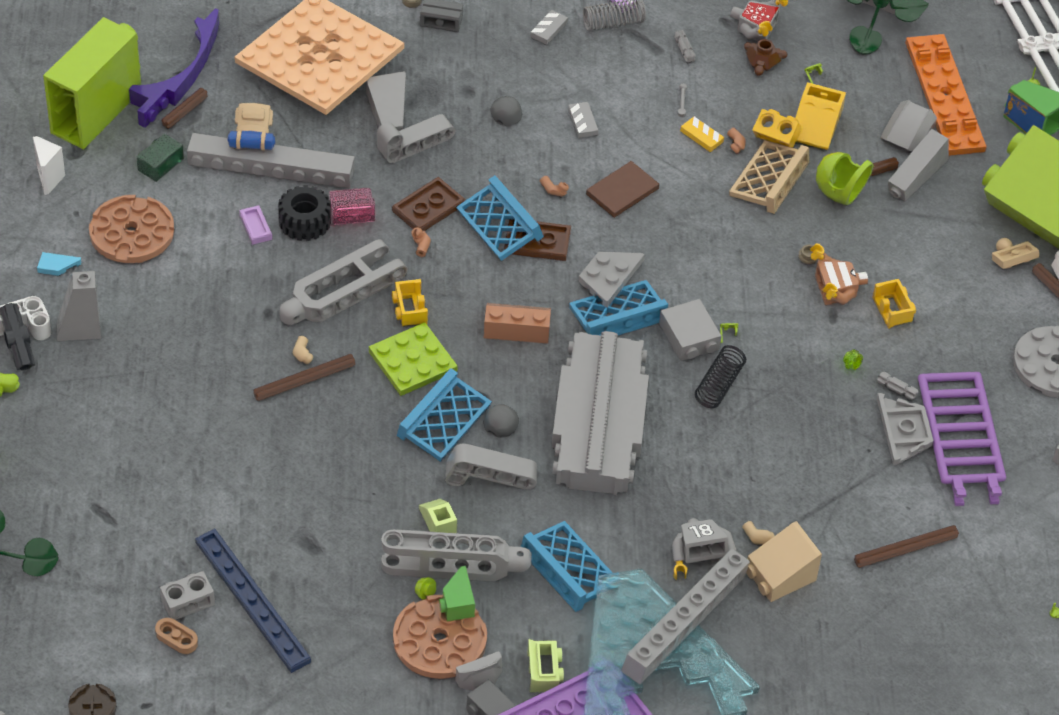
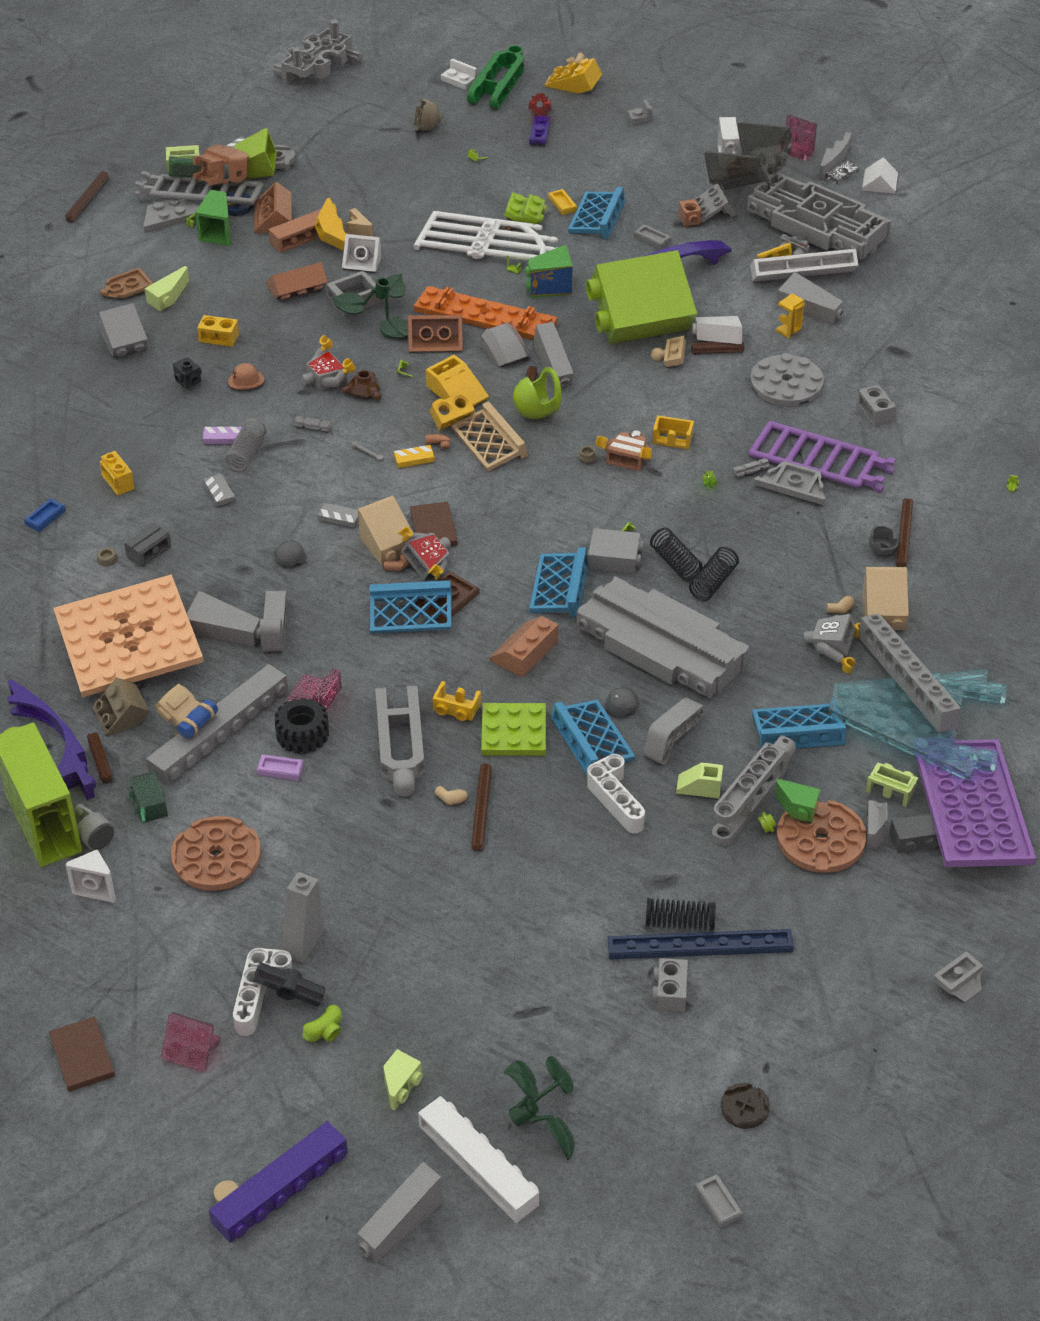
camera: 55 degrees left, 5 degrees down
(56, 264) = (210, 926): medium azure tile -> none
(100, 140) = (93, 828): none -> light grey piece
(179, 635) = (708, 1011): medium nougat plate -> none
(244, 88) = (120, 707): none -> dark tan slope
(276, 585) = (662, 913): none -> black piece
(390, 445) = (605, 784): none -> white beam
(422, 240) = (390, 667): nougat arm -> none
(428, 204) = (352, 647): reddish brown tile -> none
(572, 196) = (425, 552): none -> torso
(578, 156) = (380, 528): none -> tan slope
(609, 273) = (519, 572): light grey wing -> none
(687, 413) = (706, 567): none -> black piece
(873, 530) = (882, 540): none -> dark grey hair
(878, 70) = (435, 333): none -> nougat slope

